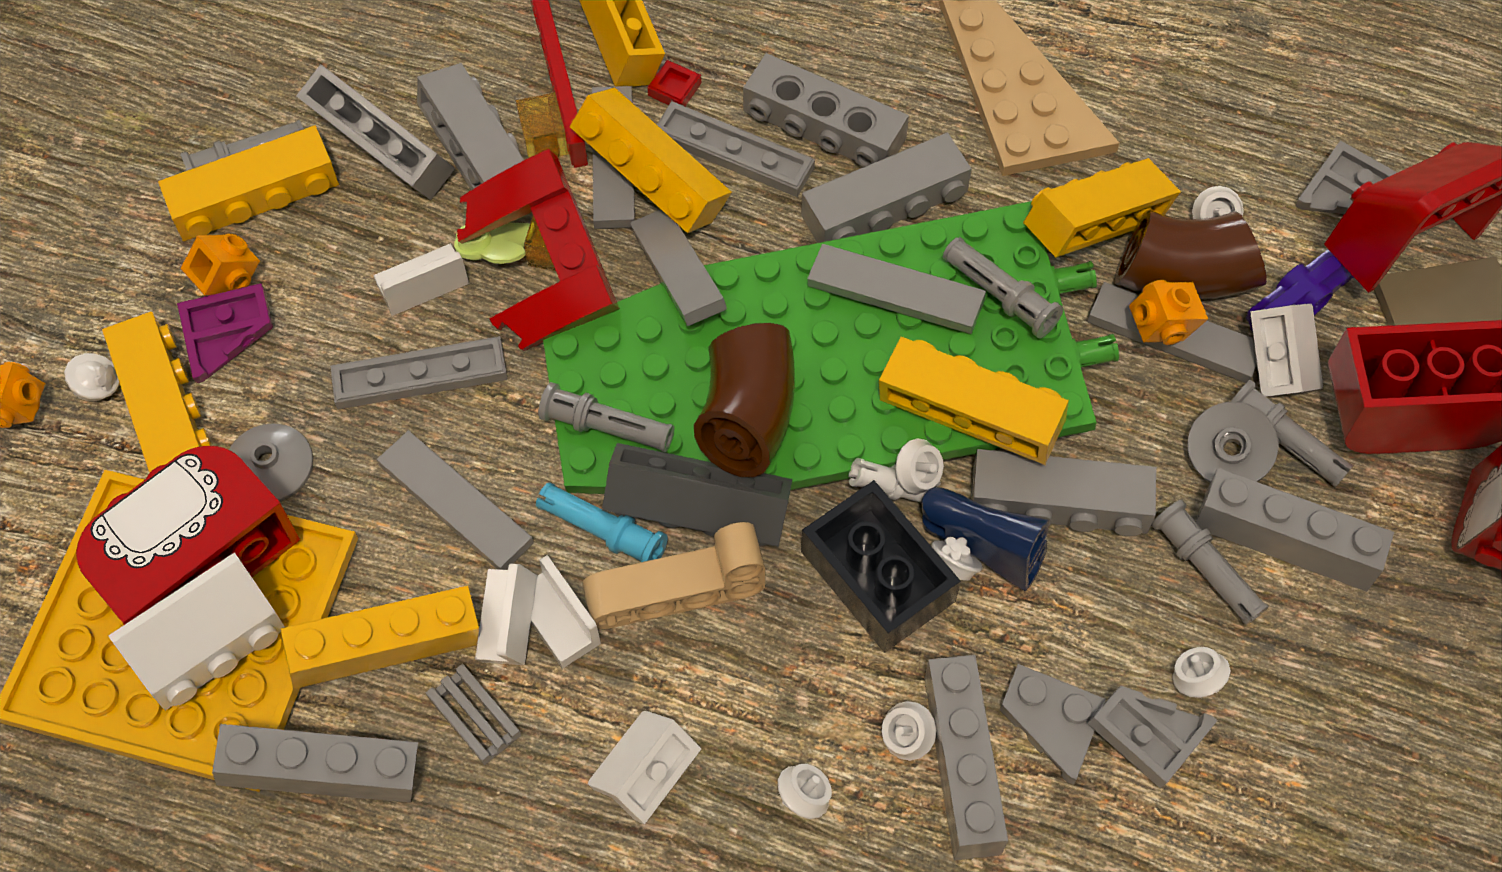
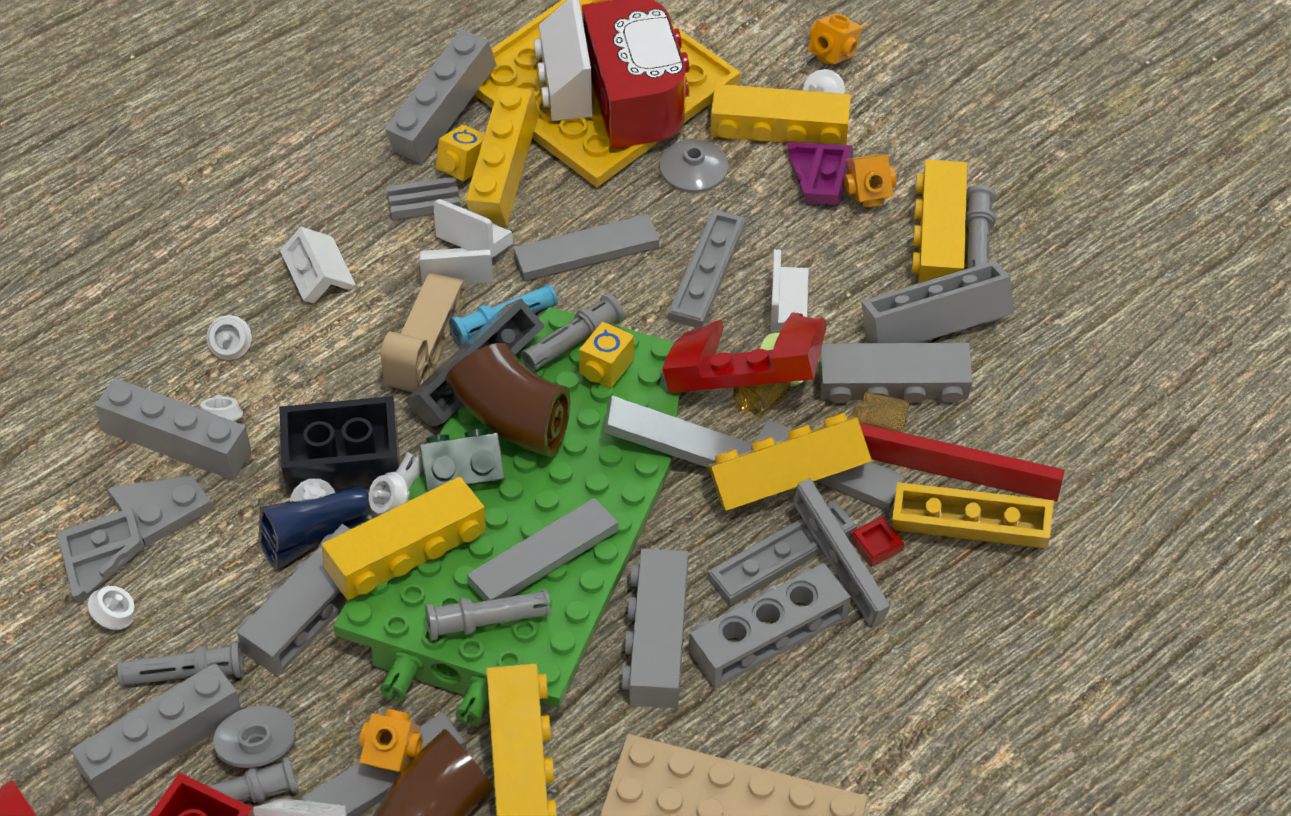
camera: 120 degrees right, 10 degrees down
(391, 694) = (459, 152): none -> yellow brick
(620, 367) = (606, 355): none -> yellow brick
(719, 86) = (841, 553): none -> light grey tile
(840, 417) = (473, 458): none -> bracket

